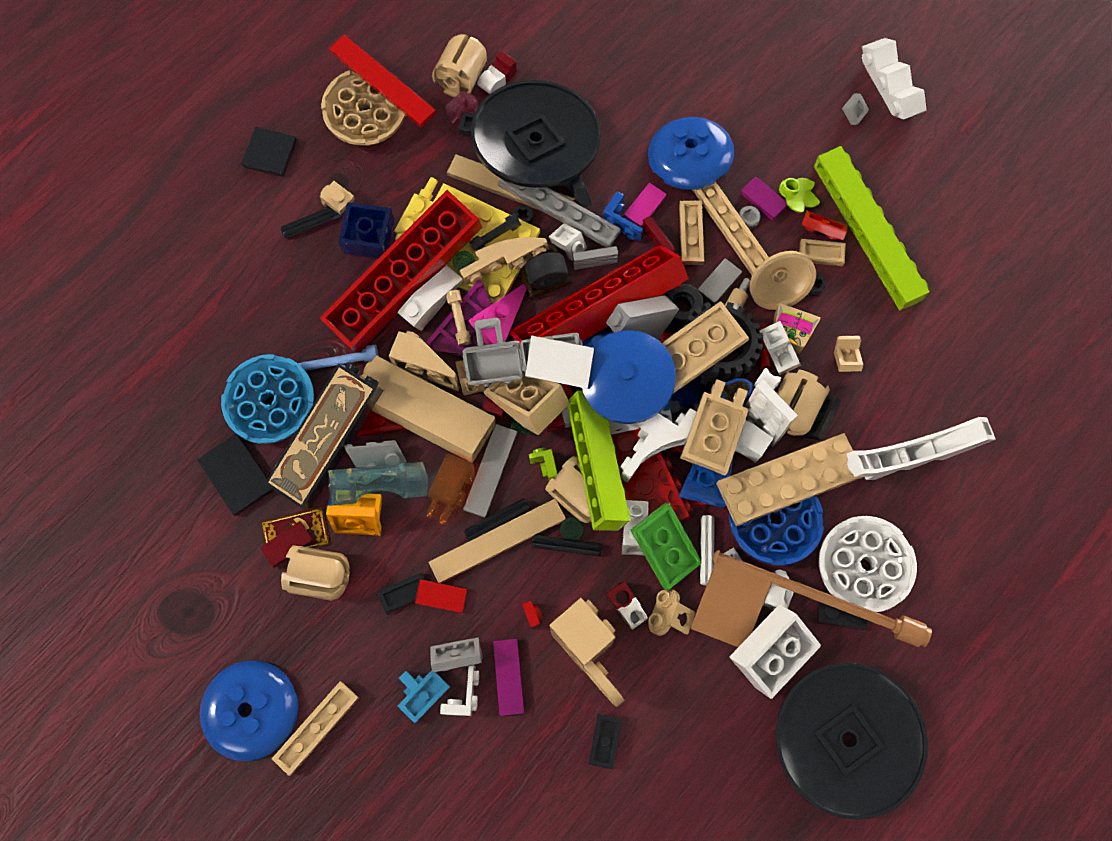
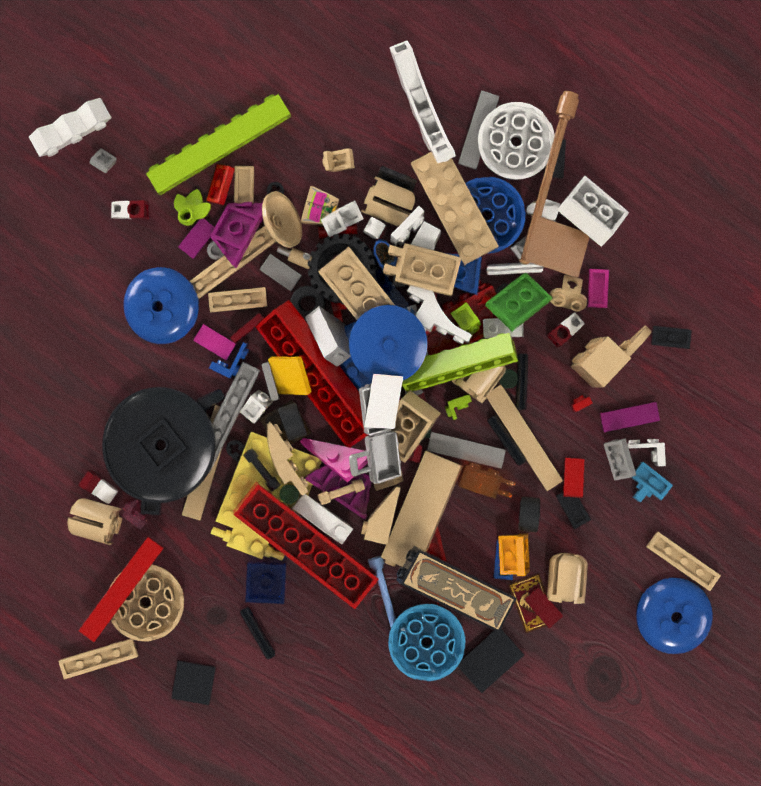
camera: 100 degrees left, 15 degrees up
(312, 59) = (98, 658): none -> tan plate
(336, 197) = (236, 614): tan bracket -> none
(350, 484) = (483, 520): clear light blue arch -> none
(375, 454) = (468, 544): light grey wing -> none
(402, 534) = (529, 514): none -> black tyre
(600, 274) = (289, 375): none -> yellow tile
(649, 479) = (466, 319): none -> lime bracket
(675, 653) = (598, 288): none -> dark pink tile
(769, 232) = (237, 229): none -> magenta wing
(799, 132) = (130, 209): none -> leg
(848, 508) = (470, 153): none -> light grey tile
(887, 747) = (679, 142): black dish -> none

